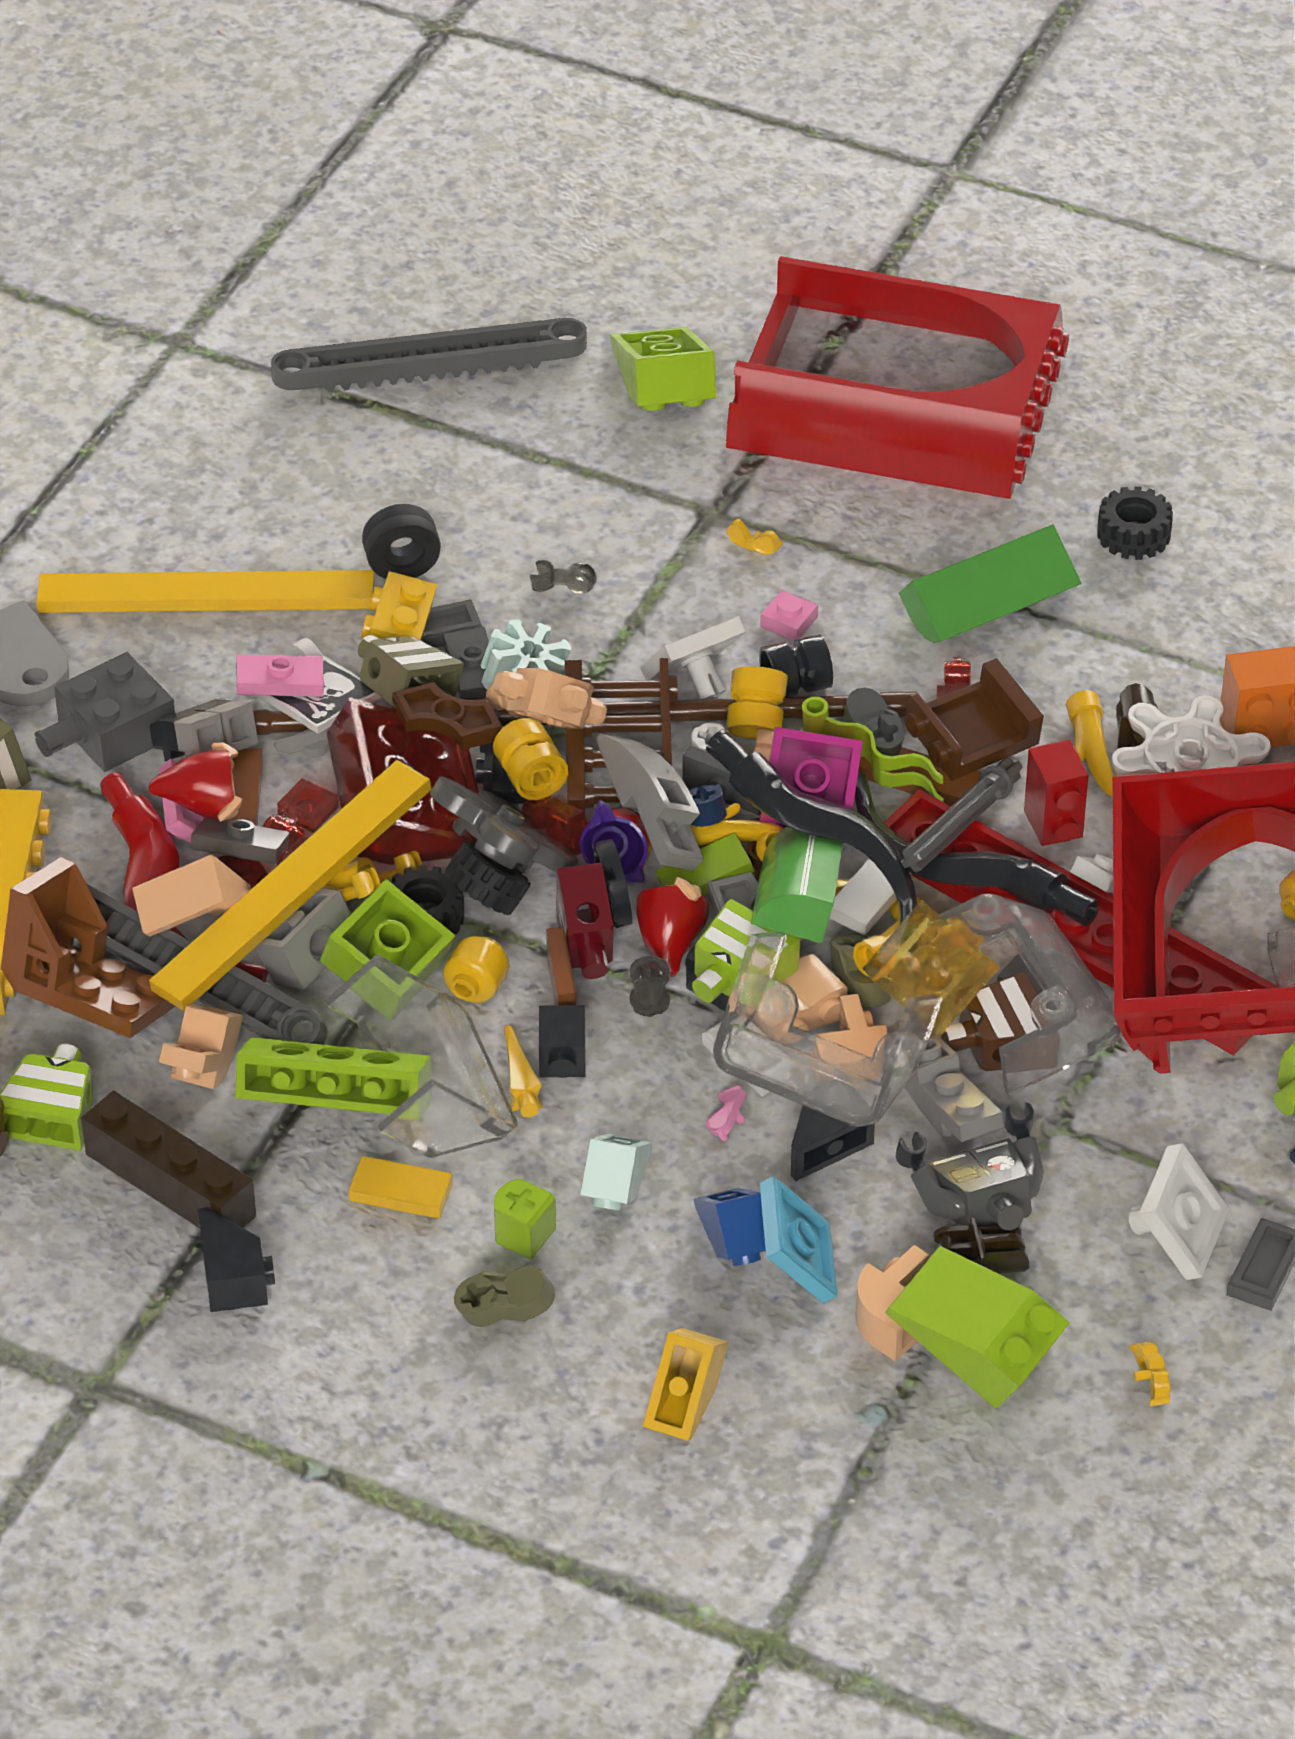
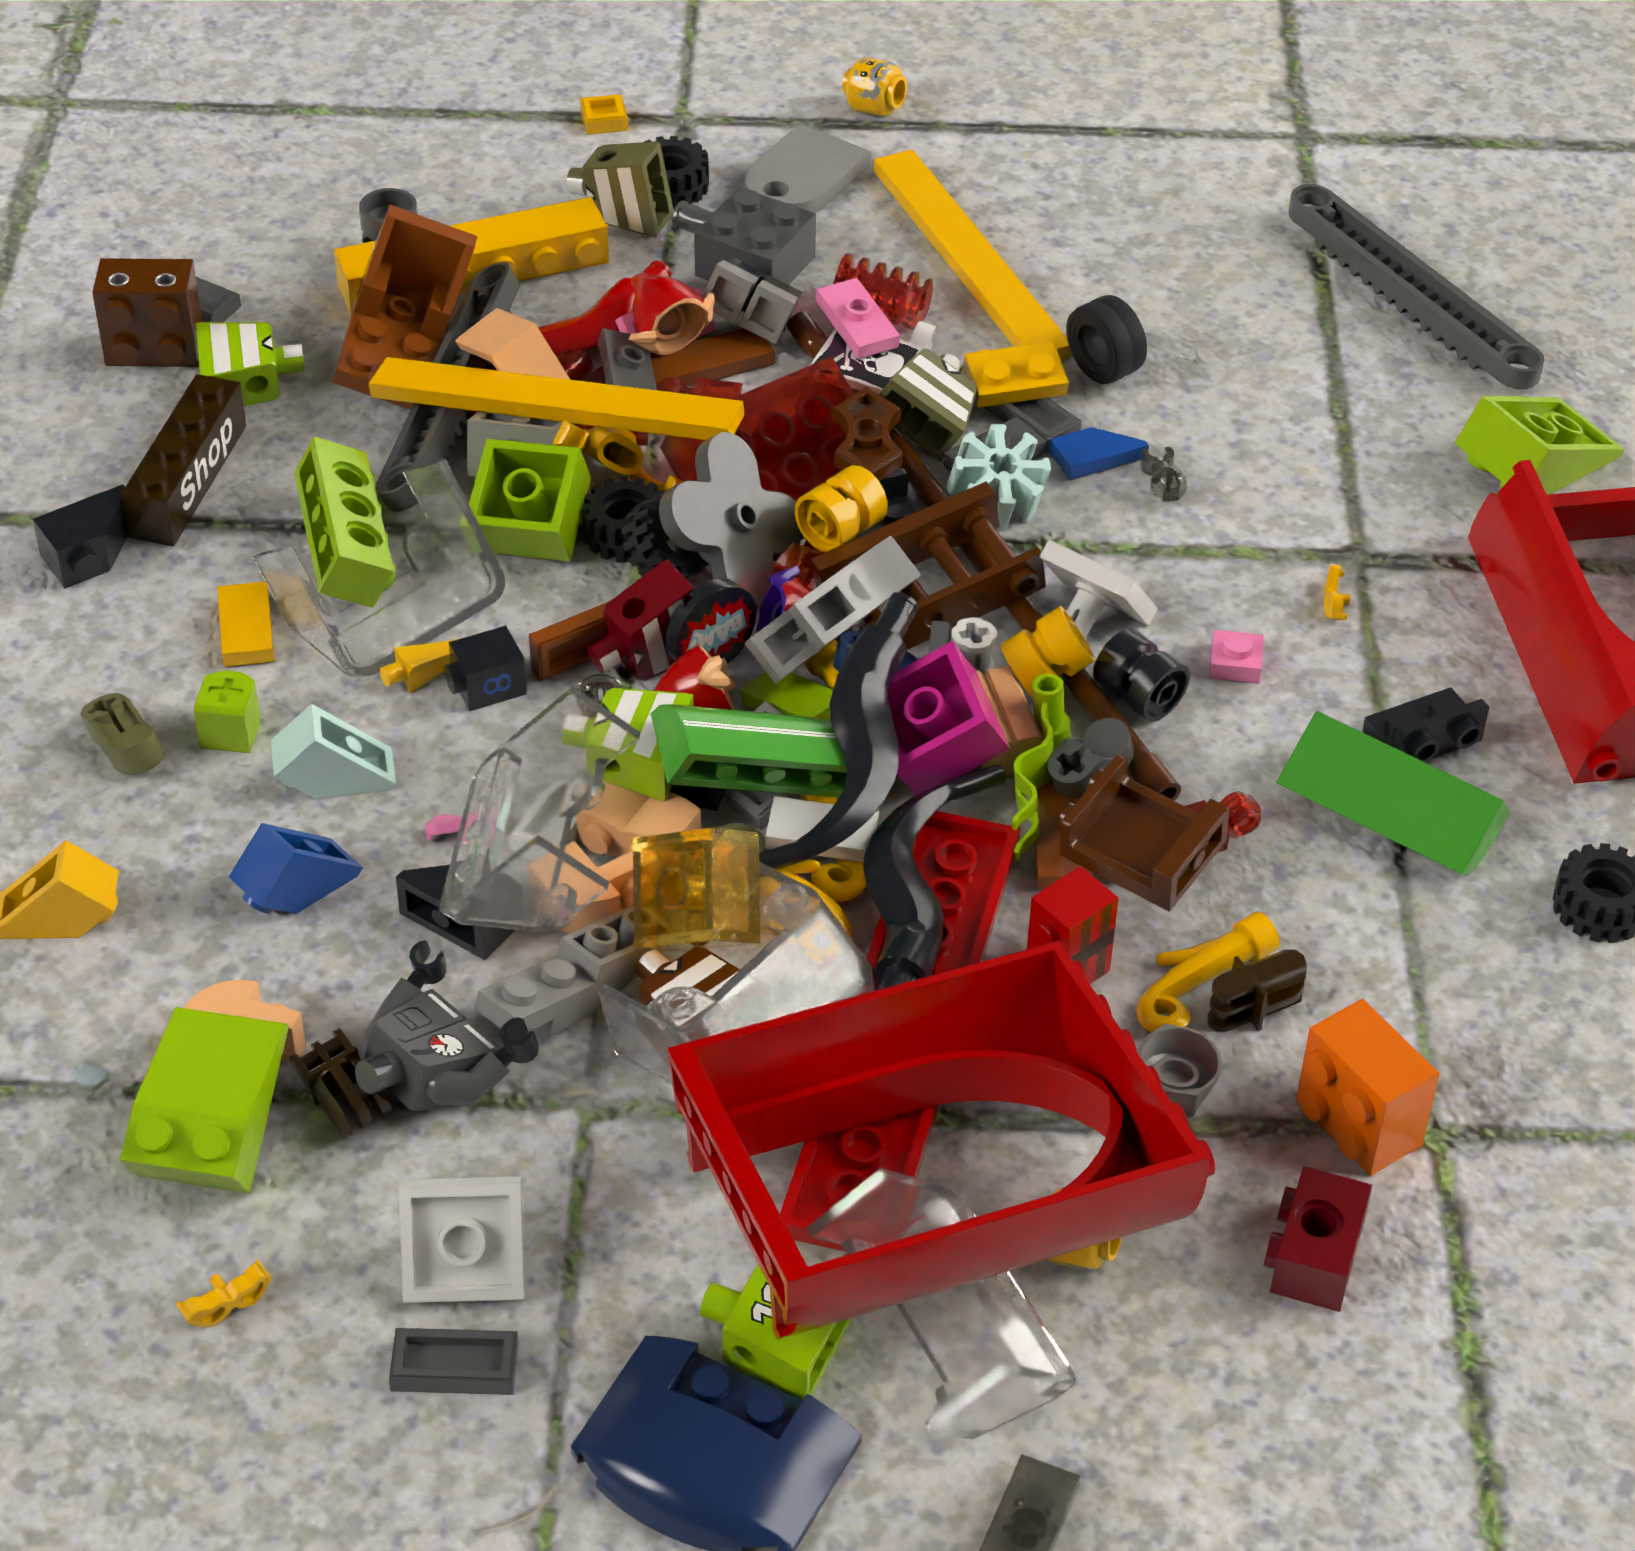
camera: 65 degrees right, 0 degrees up
(204, 1046) = (358, 423): light nougat brick -> none
(217, 658) = (896, 298): none -> clear red piece
(476, 969) = (549, 576): yellow head -> none
(506, 604) = (1094, 451): none -> blue tile
(546, 697) = (896, 472): light nougat piece -> none
(798, 1239) = (271, 917): medium azure tile -> none
(924, 543) = (1430, 724): none -> black bracket
(994, 784) = (957, 855): dark grey axle -> none
(1189, 735) = (1221, 1005): white plate -> none

